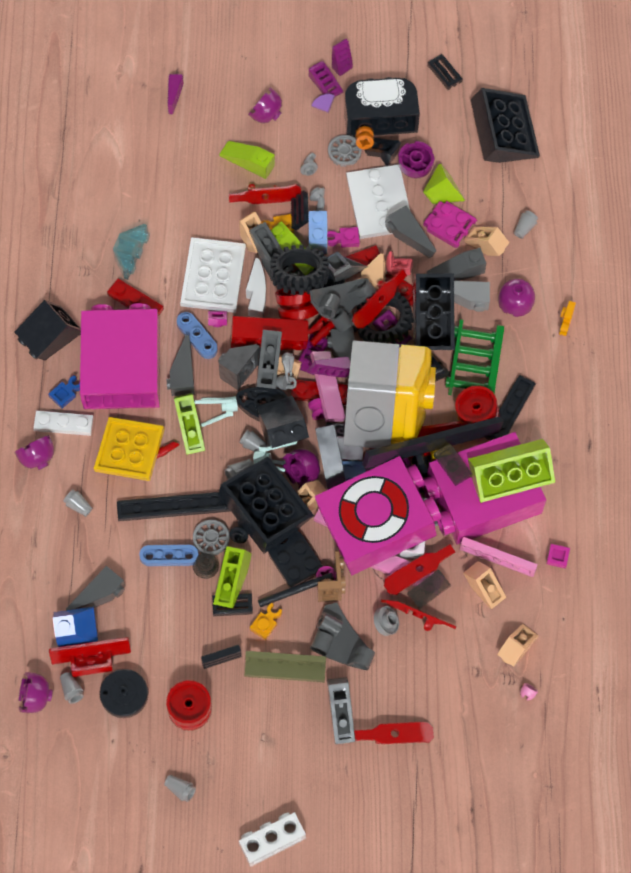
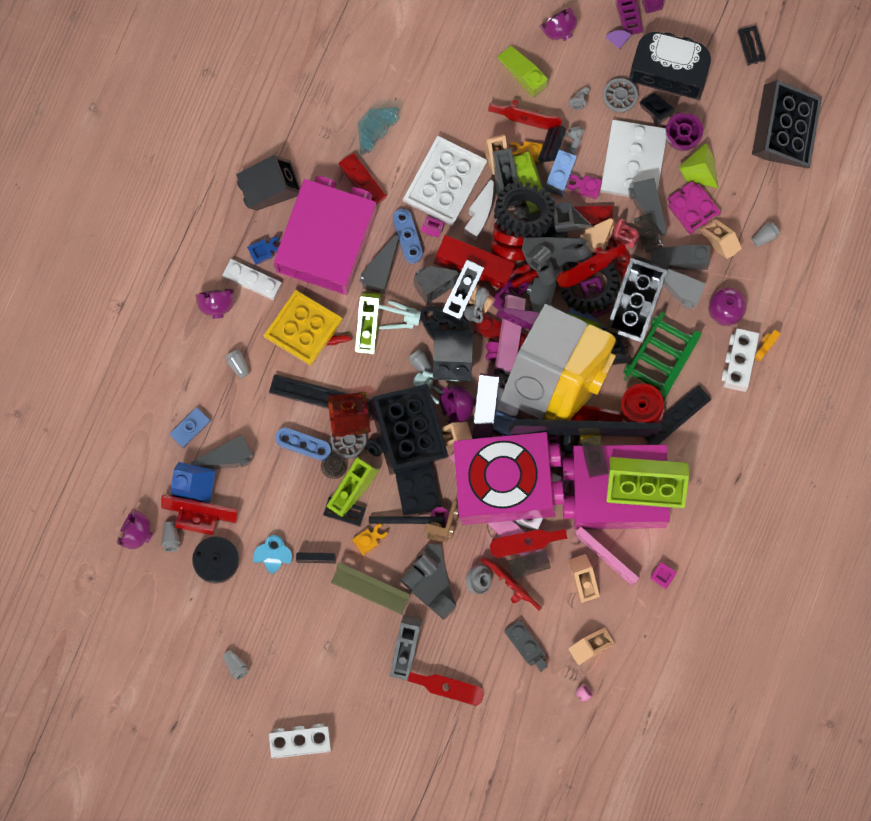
camera: 20 degrees right, 10 degrees up
(52, 579) = (189, 428): none -> medium blue plate
(177, 671) = (272, 556): none -> medium azure plate
(185, 694) = (273, 604): red wheel -> none
(203, 511) = (349, 414): none -> clear red slope
(236, 468) = (397, 383): light grey cone -> none
(361, 134) = (643, 90): orange wheel -> none
(419, 255) = (648, 232): none -> clear smoke plate
(455, 667) = (526, 645): none -> dark grey hinge
(552, 331) = (747, 353): none -> white brick

